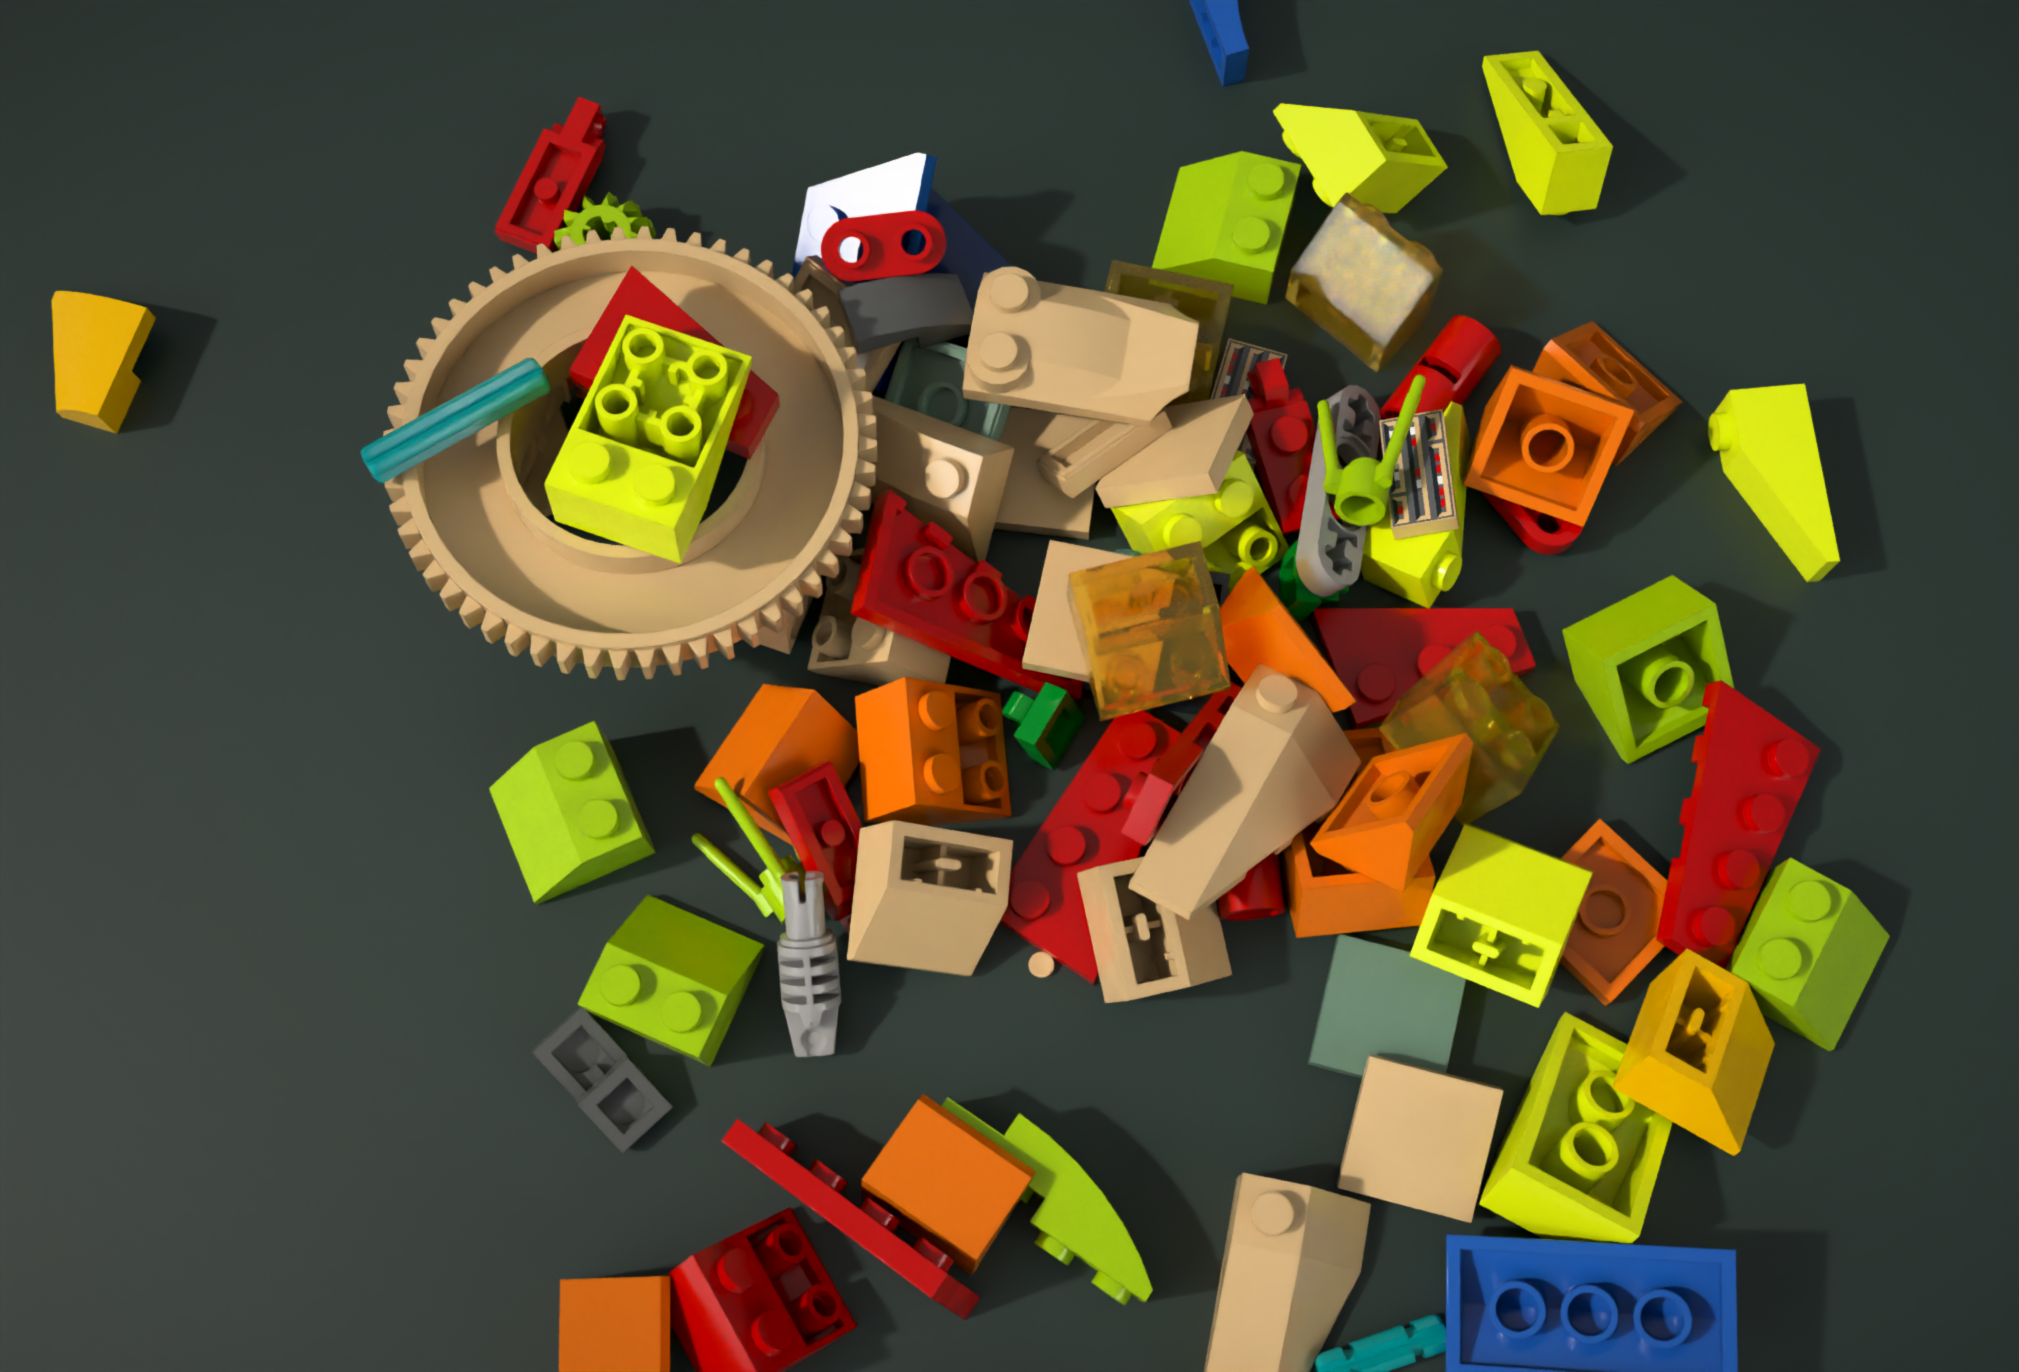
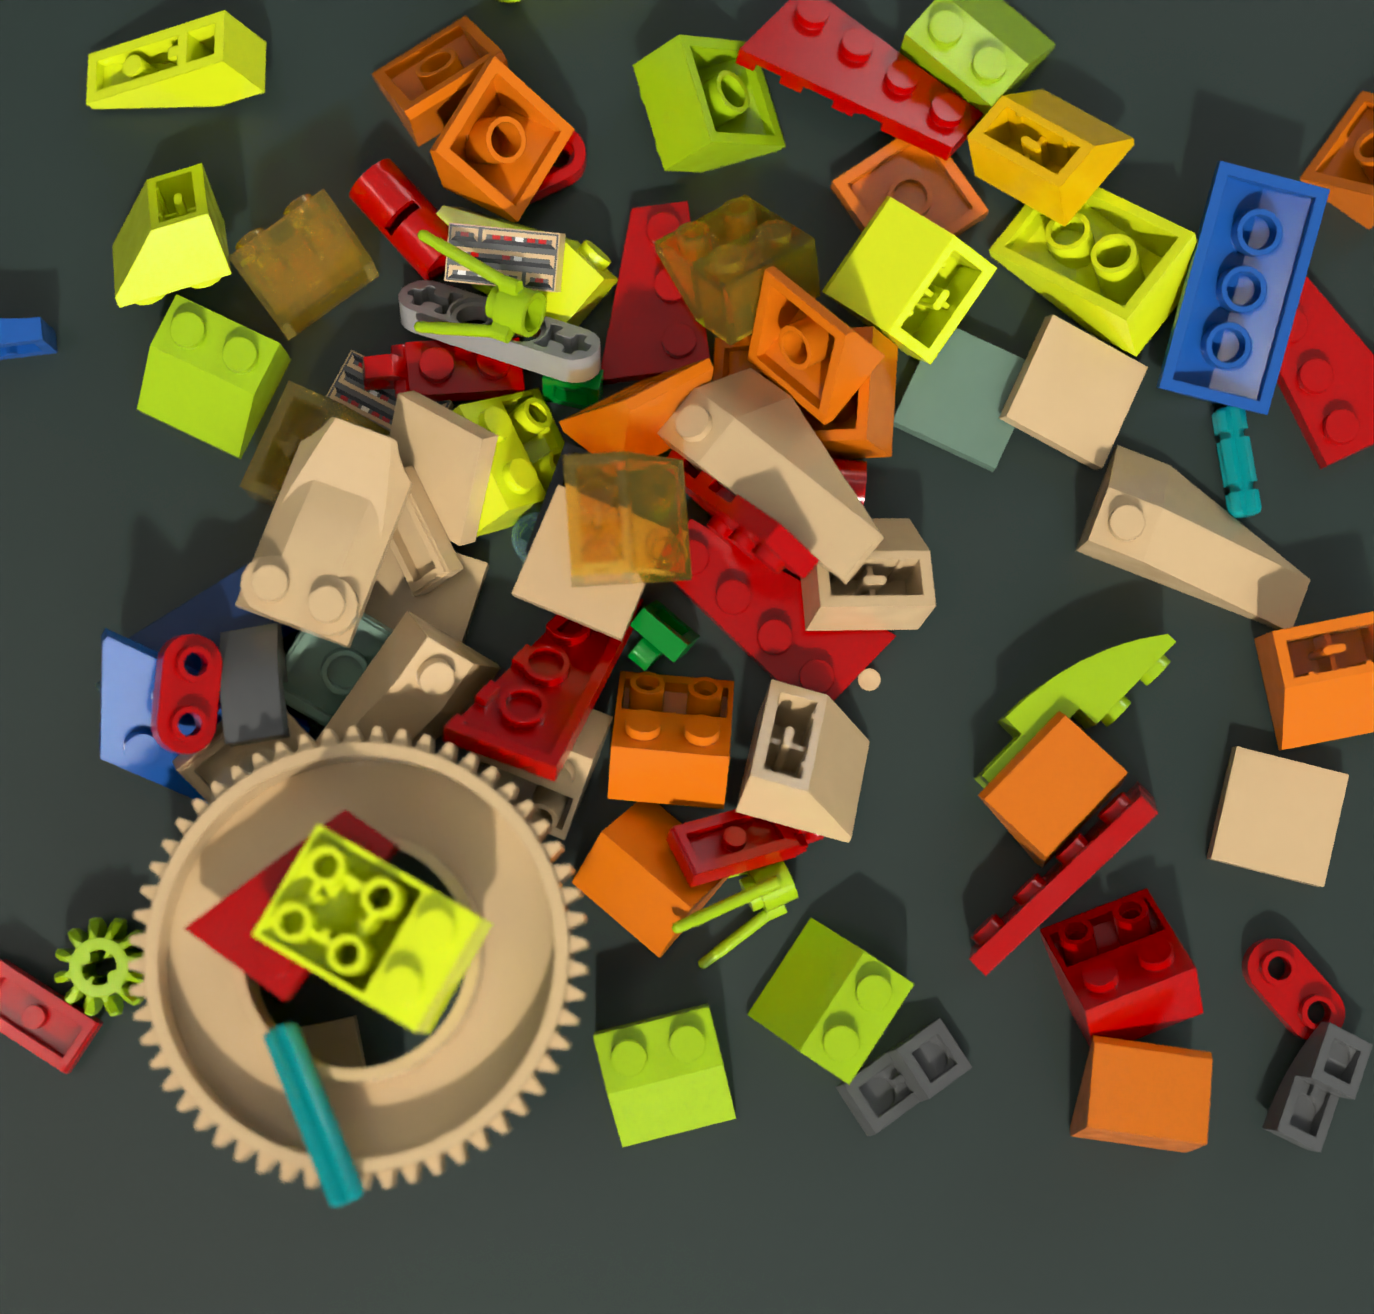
camera: 90 degrees left, 10 degrees up
(808, 967) = (845, 878): light grey hinge -> none

